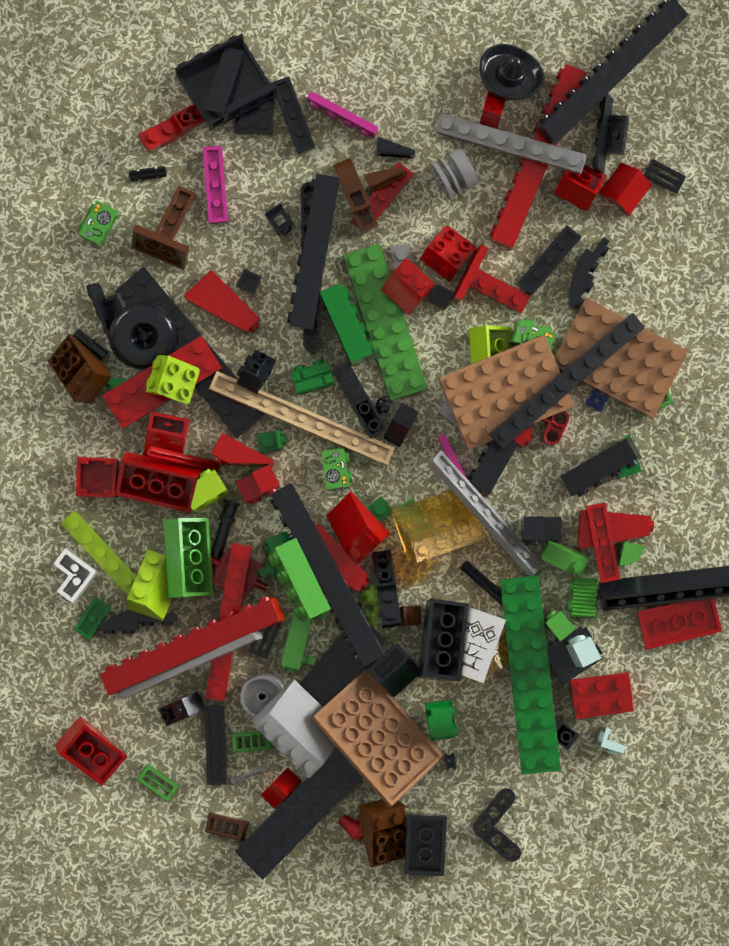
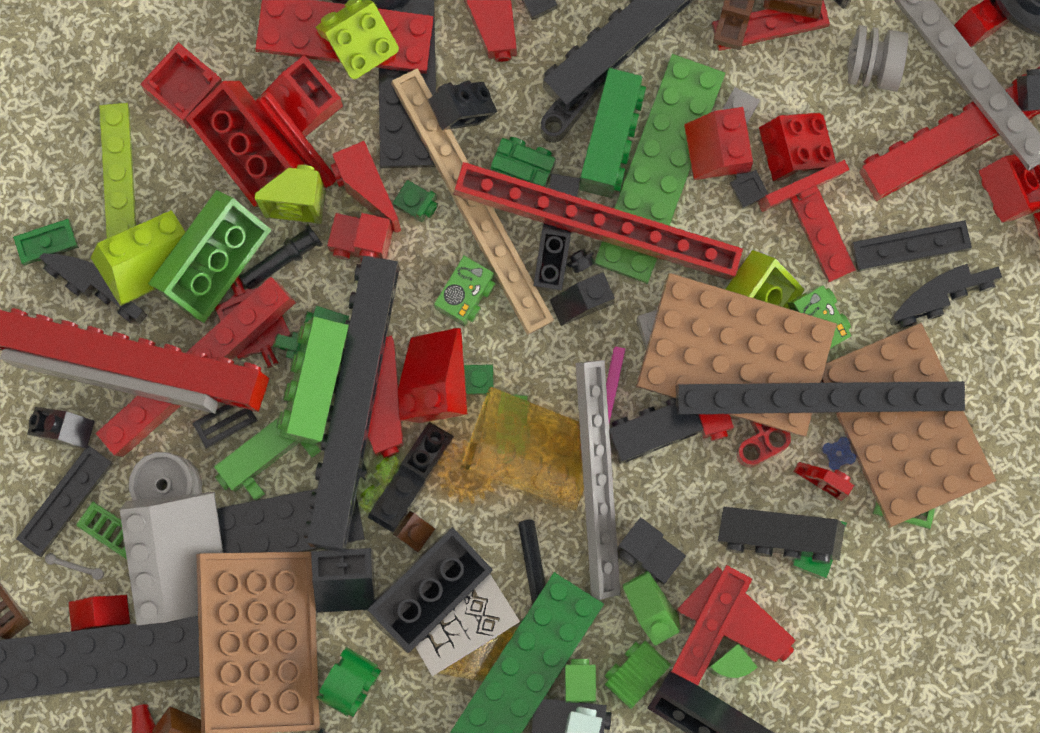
camera: 40 degrees right, 5 degrees down
(79, 575) = (69, 180): white brick -> none
(378, 378) = (597, 221): none -> red brick
(604, 419) = (833, 483): none -> red wing

